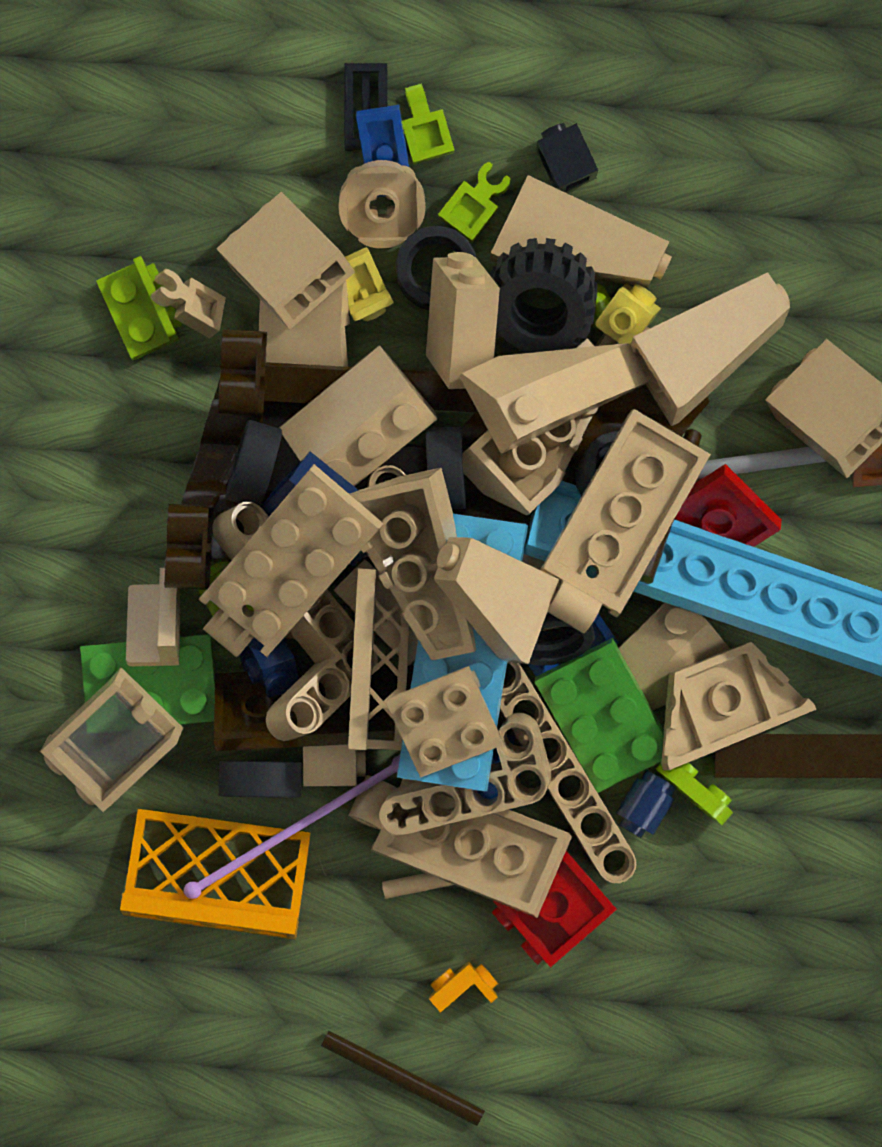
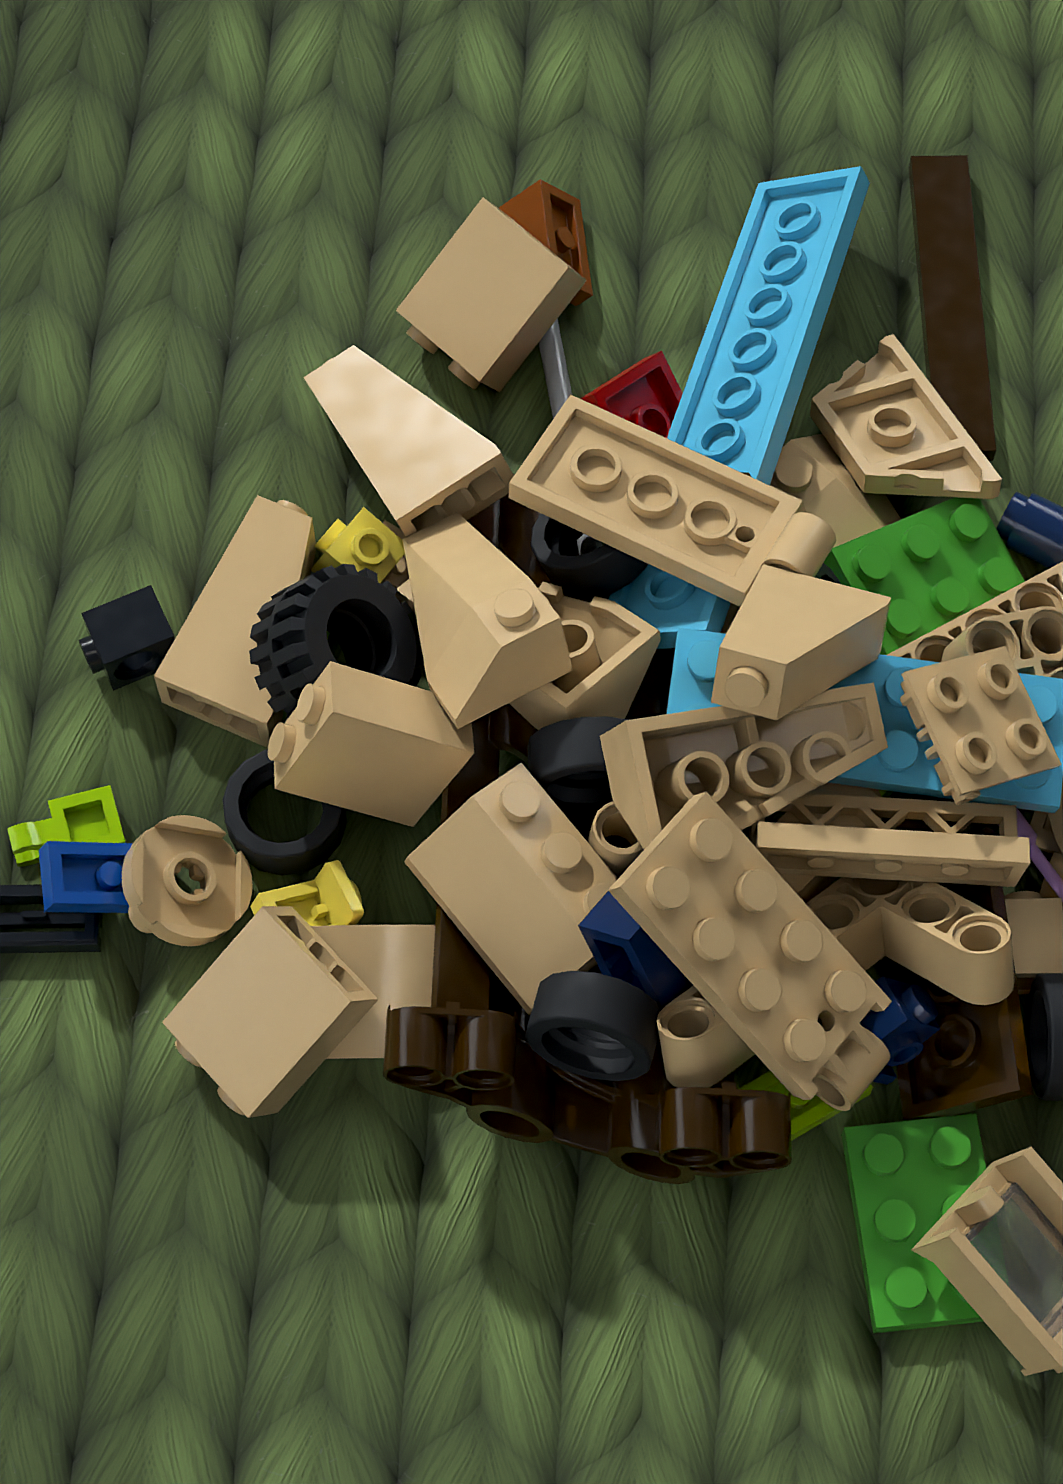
camera: 95 degrees left, 20 degrees down
(137, 317) = (335, 1245): lime bracket -> none
(153, 624) = (833, 1204): tan panel -> none
(194, 302) = (331, 1152): tan plate -> none
(471, 207) = (193, 765): lime plate -> none
(710, 801) = (1027, 459): lime plate -> none

